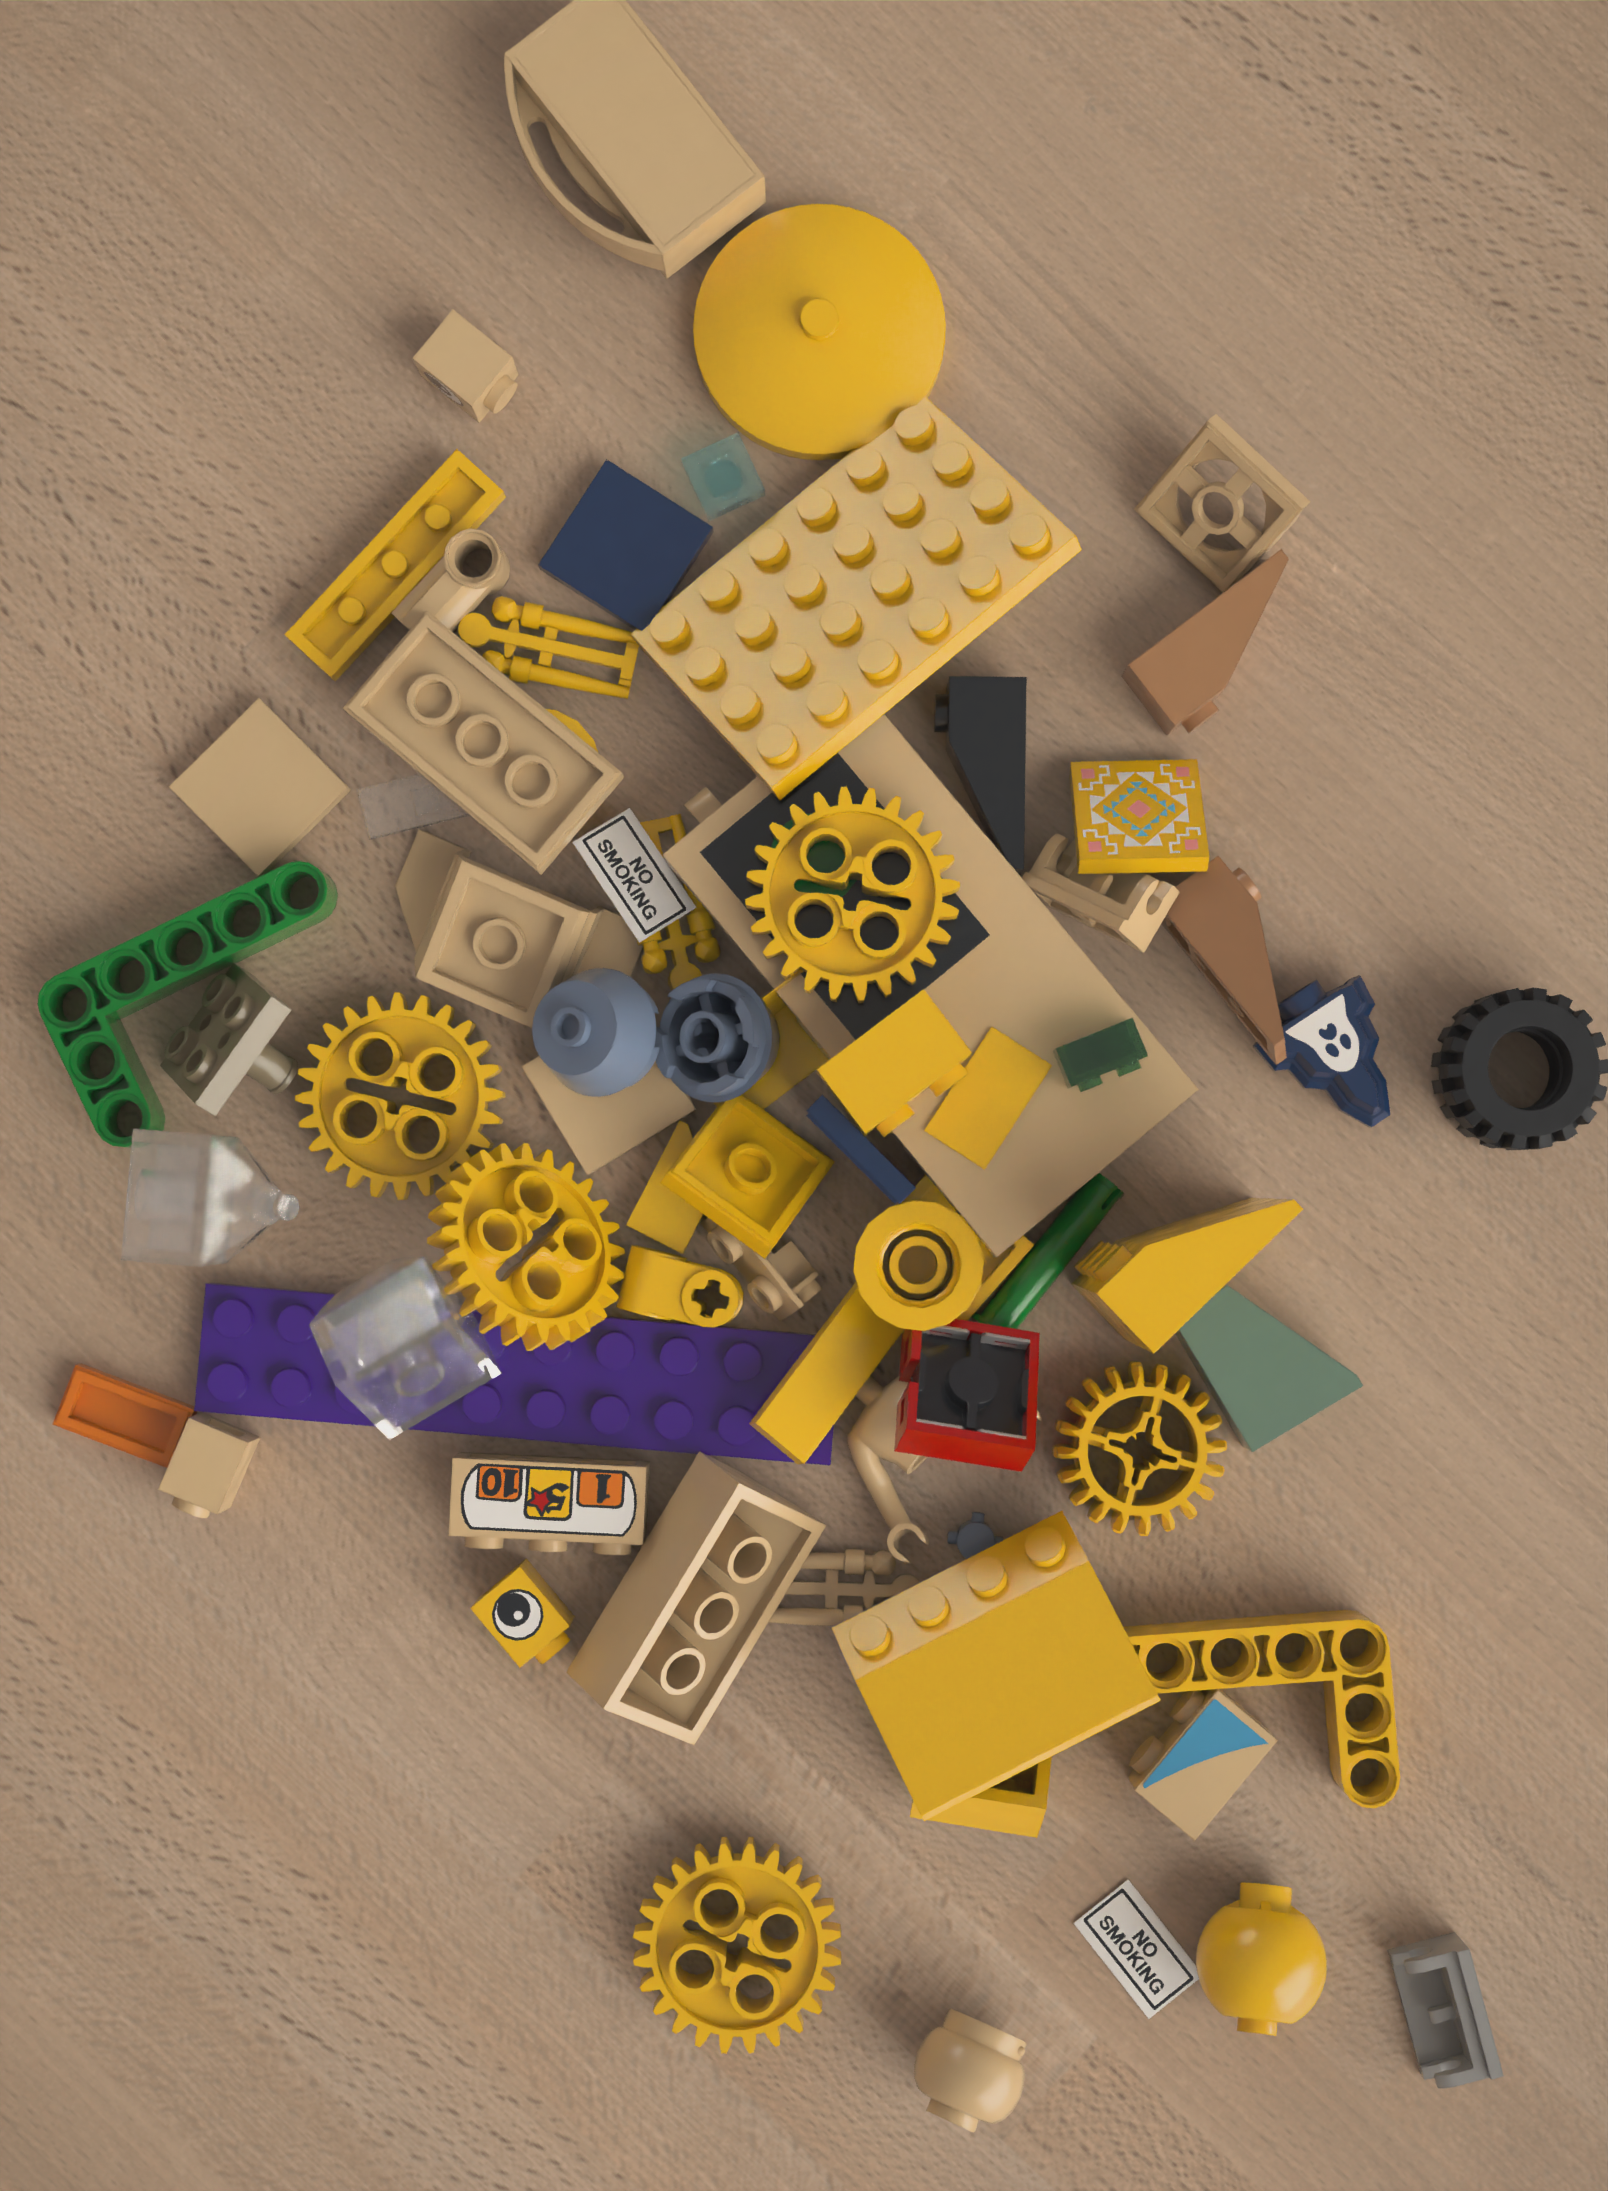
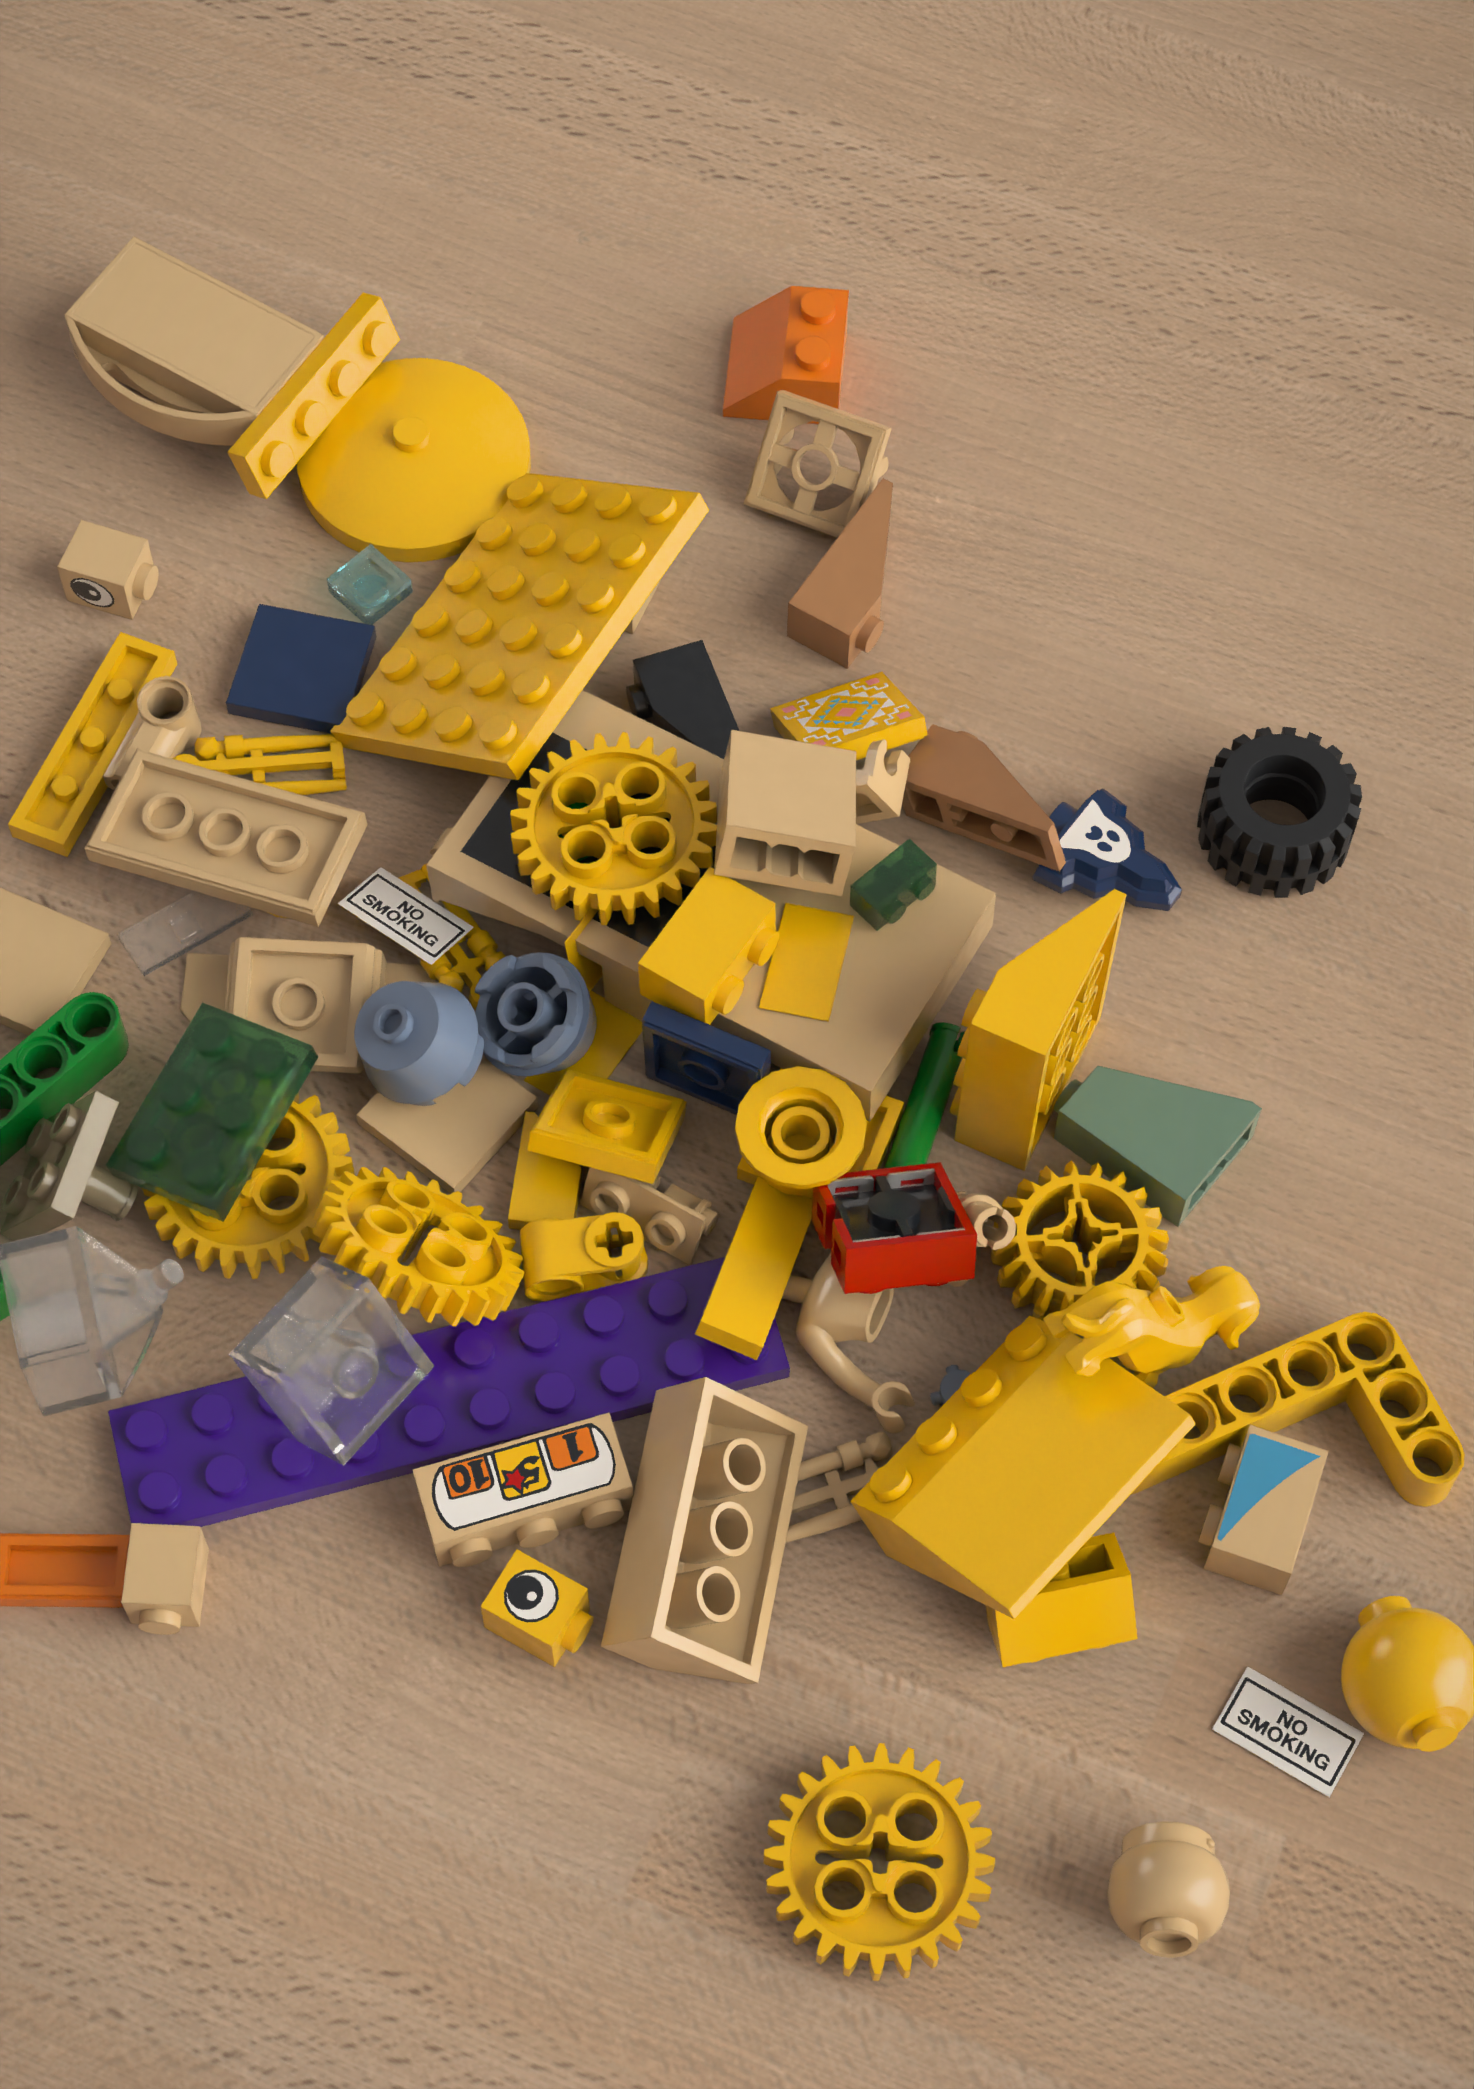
camera: 25 degrees left, 25 degrees down
(381, 1035) = (212, 1111): none -> clear green plate
(736, 237) = (313, 395): none -> yellow plate
(1021, 952) = (786, 813): none -> tan brick
(1055, 1405) = (981, 1209): none -> tan pin
(1168, 1575) = (1155, 1328): none -> yellow animal
(1244, 349) = (787, 345): none -> orange slope

